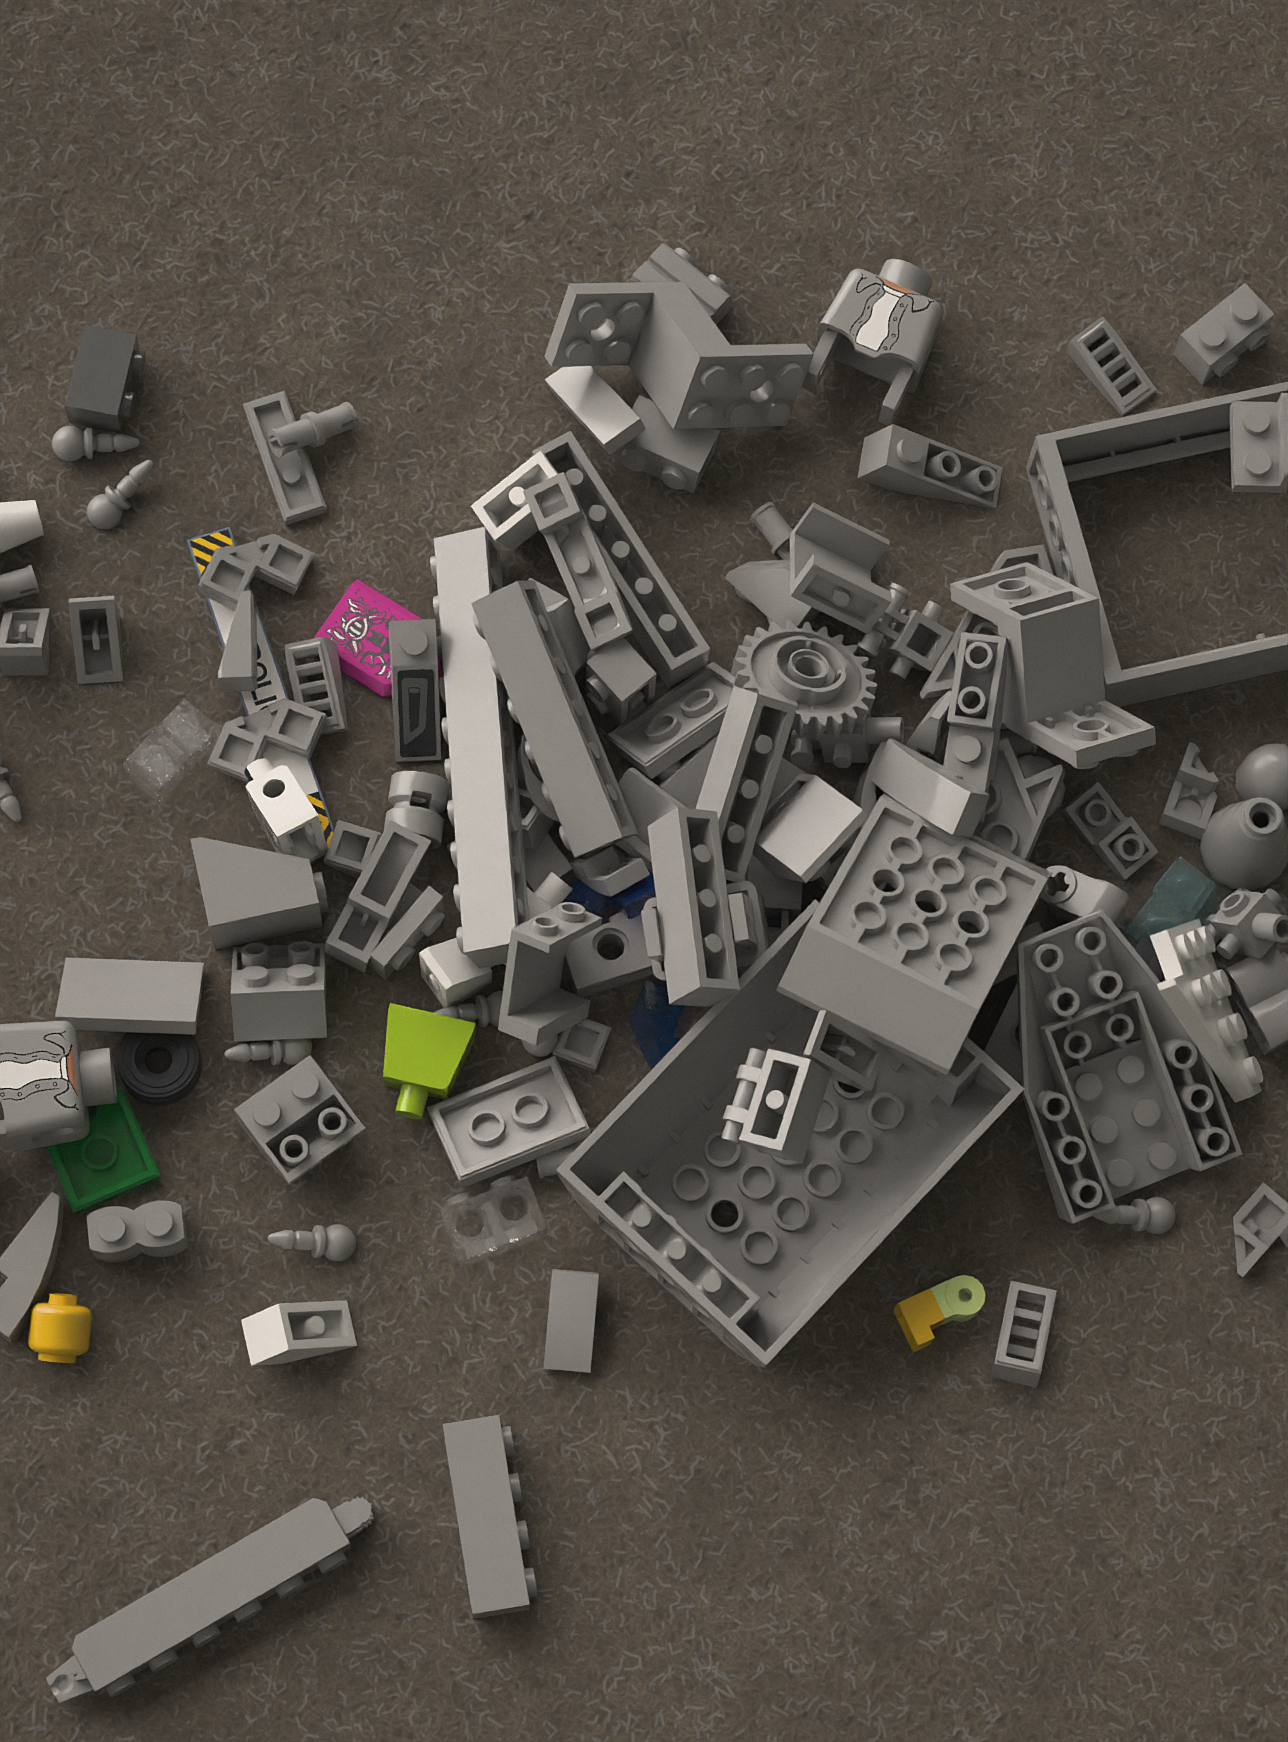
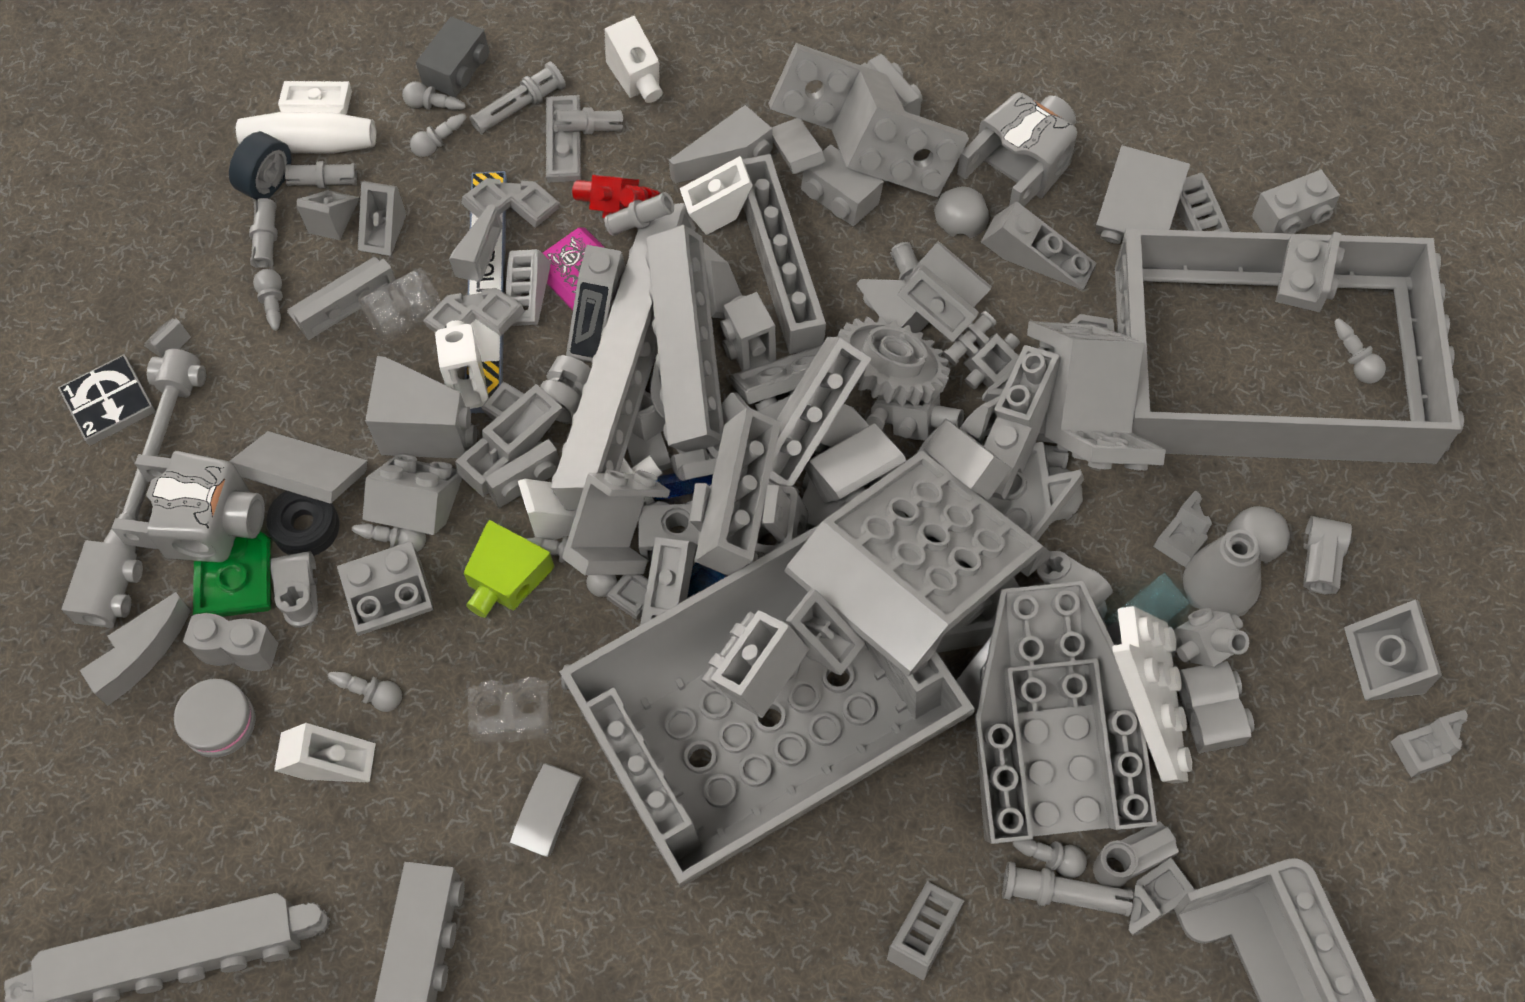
camera: 25 degrees right, 10 degrees down
(59, 1329) = (141, 701): yellow head -> none
(85, 753) = (340, 297): none -> light grey panel
(152, 1324) = (214, 718): none -> light grey head
(182, 1138) = (295, 588): none -> light grey piece
(218, 401) = (533, 93): none -> light grey pin
(337, 315) = (632, 59): none -> white torso
(387, 530) = (610, 193): none -> red piece
(434, 557) = (639, 214): none -> light grey pin
(505, 421) = (736, 136): none -> light grey slope
(508, 1121) = (548, 636): light grey tile -> none
(579, 561) = (744, 234): light grey slope -> none
(625, 1028) = (668, 576): none -> light grey plate
(821, 440) = (962, 212): none -> light grey hair
(948, 1301) = (857, 883): leg -> none
(1040, 375) = (1140, 194): none -> light grey panel
(1108, 832) = (1110, 544): light grey slope -> none
(1140, 1252) = (1046, 887): none -> light grey pin
(1226, 1189) = (1136, 854): none -> light grey piece

